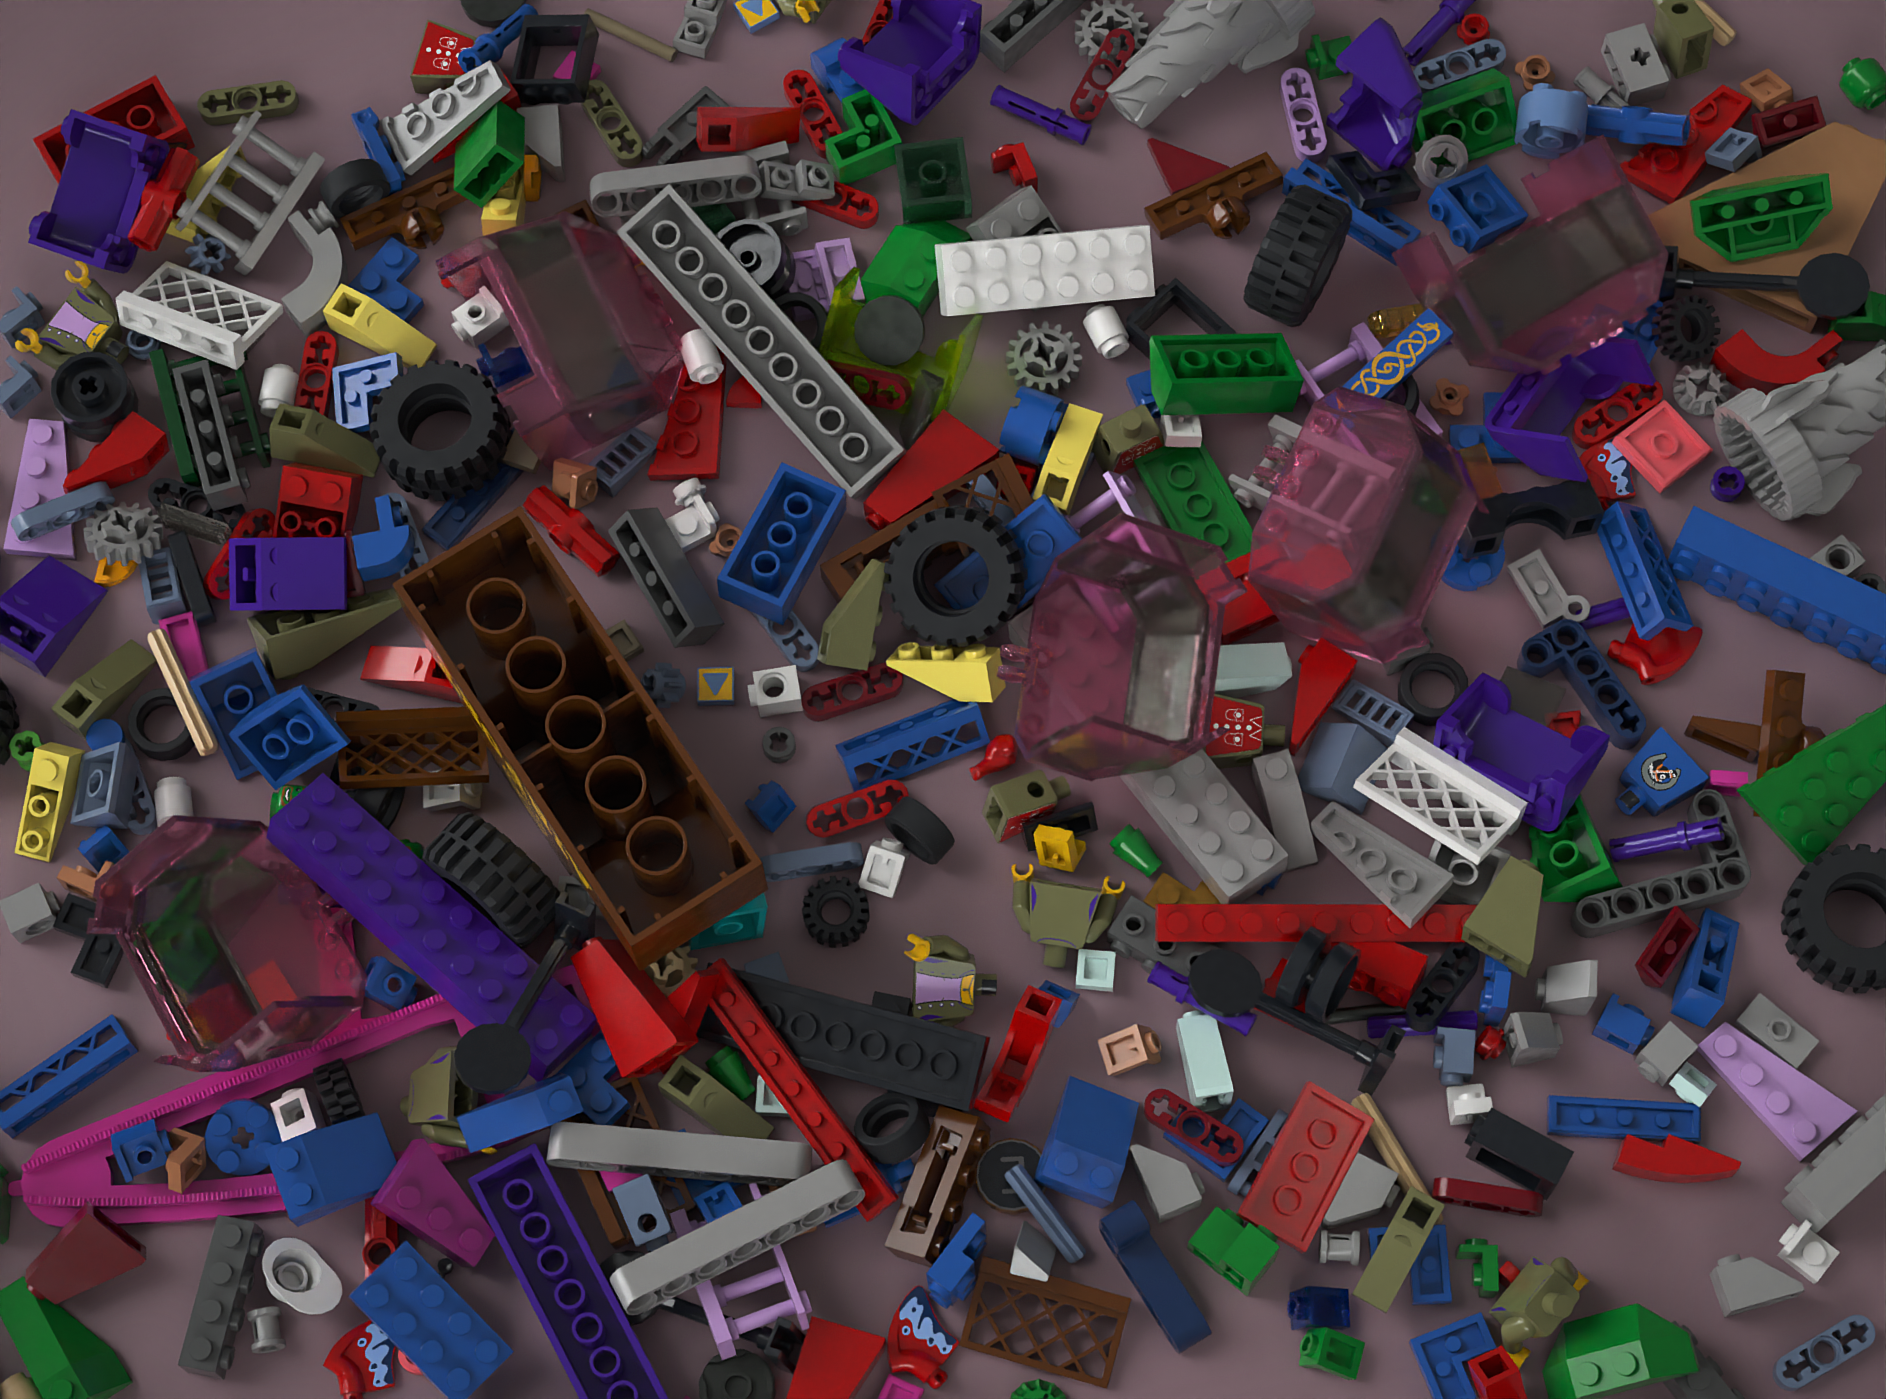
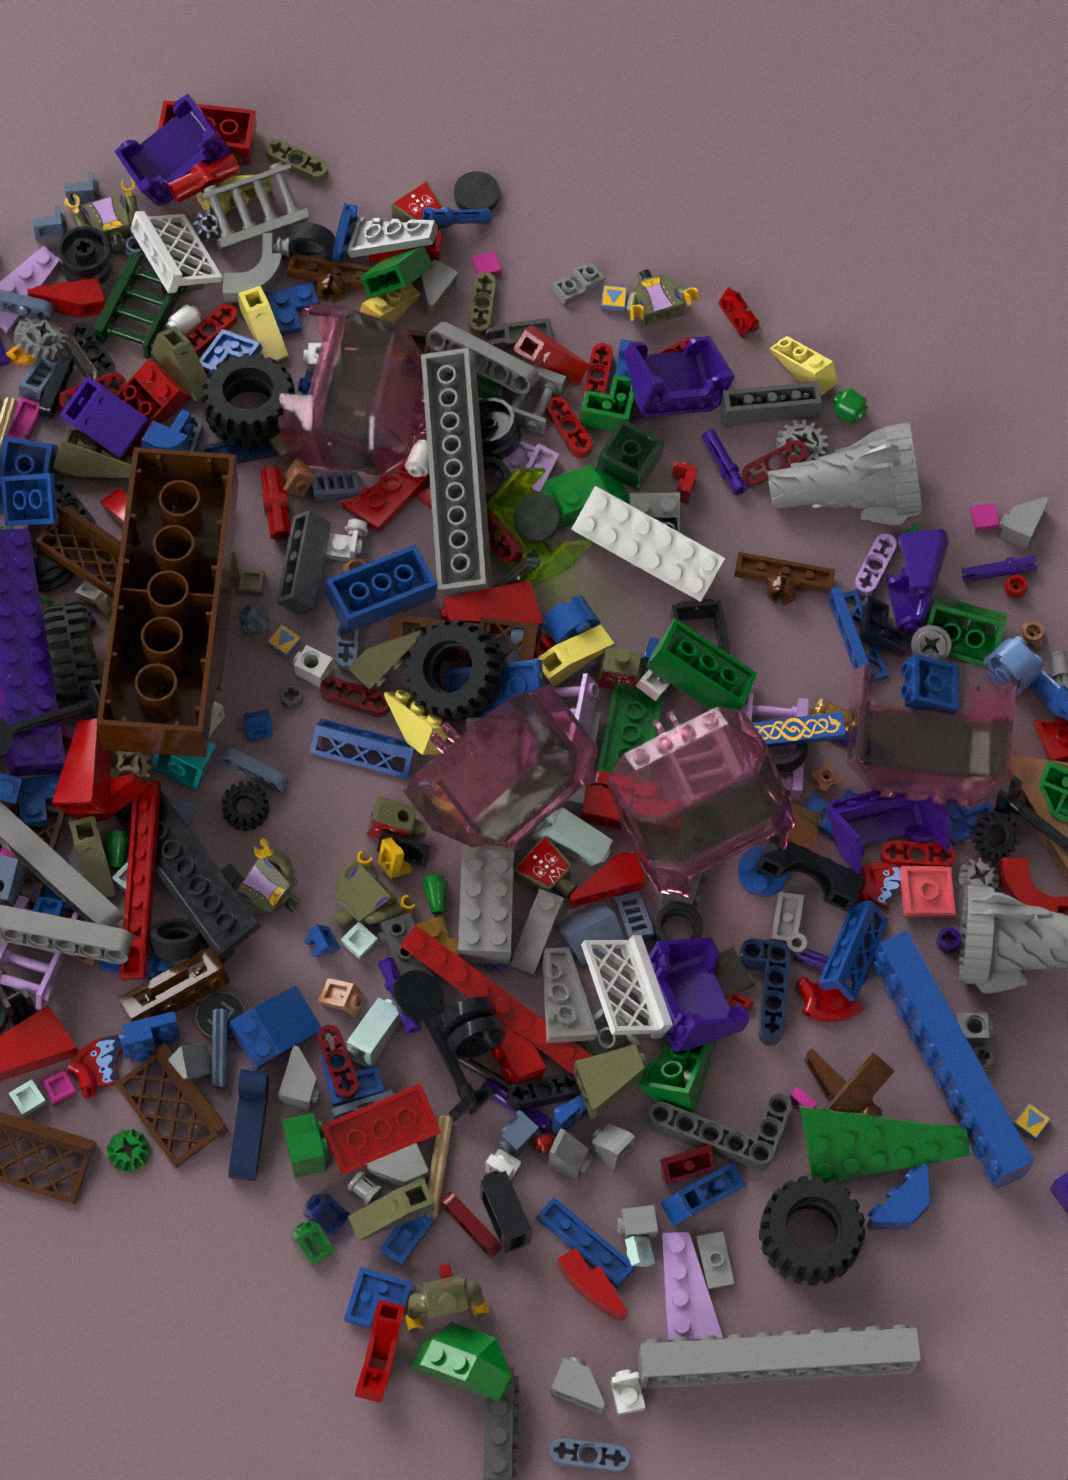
camera: 30 degrees right, 5 degrees down
(210, 436) = (124, 316): dark grey brick -> none
(532, 177) = (414, 303): light orange tile -> none
(554, 31) = (487, 230): black window -> none
(632, 36) = (533, 265): dark tan bar -> none
(799, 183) = (556, 405): light grey slope -> none
(834, 826) = (308, 769): red beam -> none
(884, 867) = (291, 800): white bracket -> none
(919, 830) = (324, 794): black tyre -> none
(999, 756) = (396, 789): red animal -> none
(1020, 1054) = (278, 955): red arch -> none
(1054, 348) = (620, 601): light grey gear -> none
(1106, 331) = (660, 603): white brick -> none
(1180, 167) = (780, 545): dark red tile -> none
(1297, 255) = (796, 633): black tyre -> none
(1467, 55) = (997, 595): sand blue beam -> none
(1485, 1272) = (432, 1262): green bracket -> none
(1623, 1026) = (627, 1189): blue brick -> none
(1659, 777) = (766, 1069): blue torso -> none
(1667, 839) = (747, 1109): dark purple pin -> none

